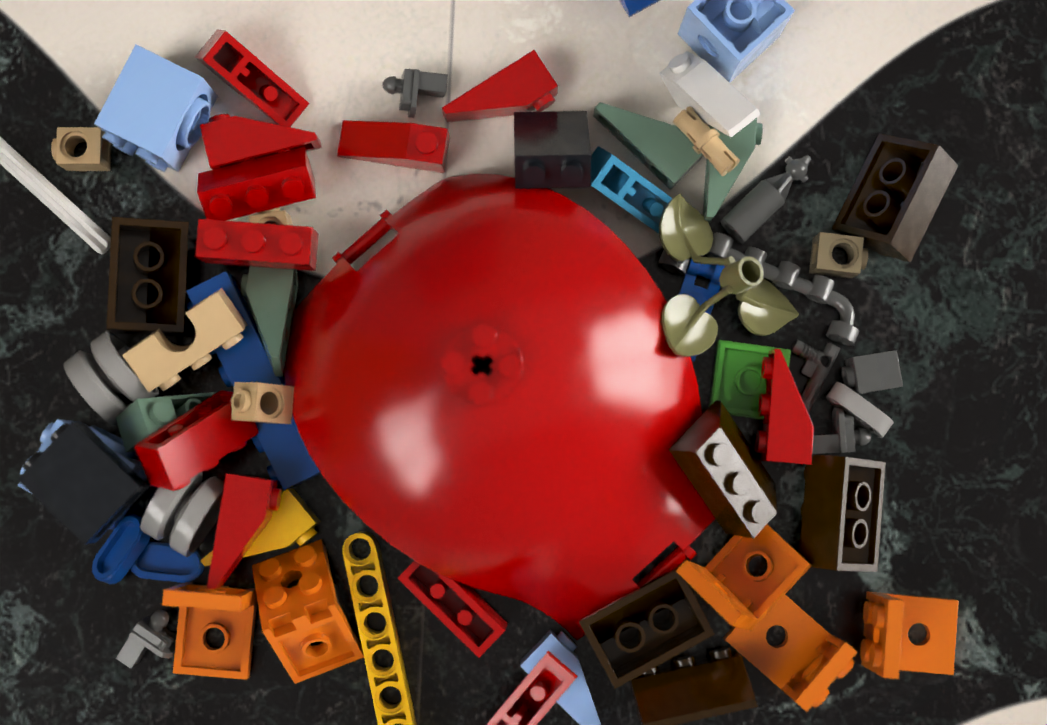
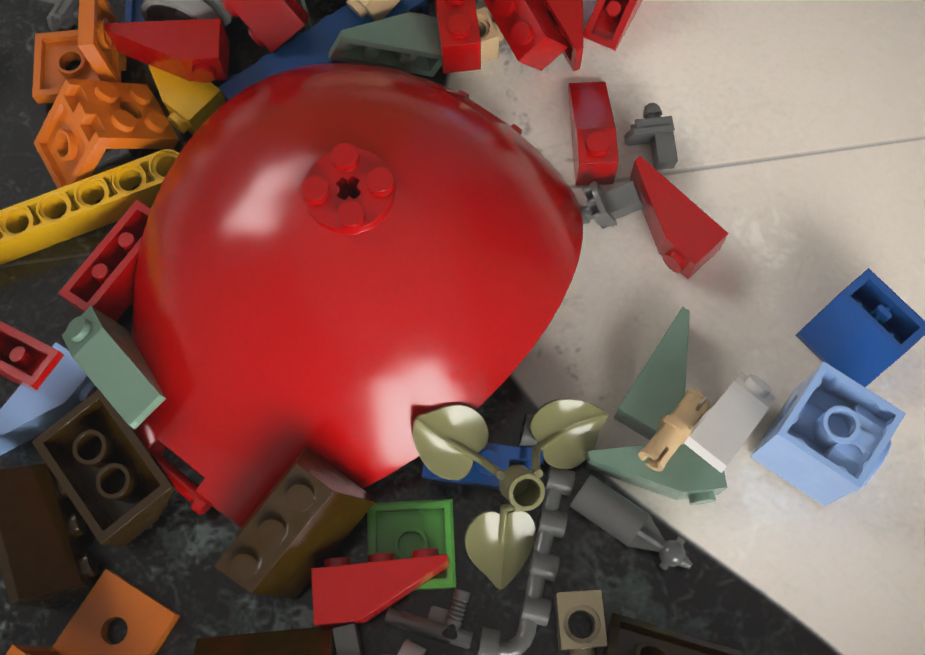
camera: 85 degrees right, 15 degrees down
(262, 403) = (291, 54): tan brick -> none
(477, 151) = (610, 205): none -> dark grey piece
(552, 150) = (621, 266): black brick -> none
(560, 609) = (114, 365): none -> sand green slope
(627, 188) = (602, 358): dark azure slope -> none
(732, 588) = (151, 558): orange bracket -> none

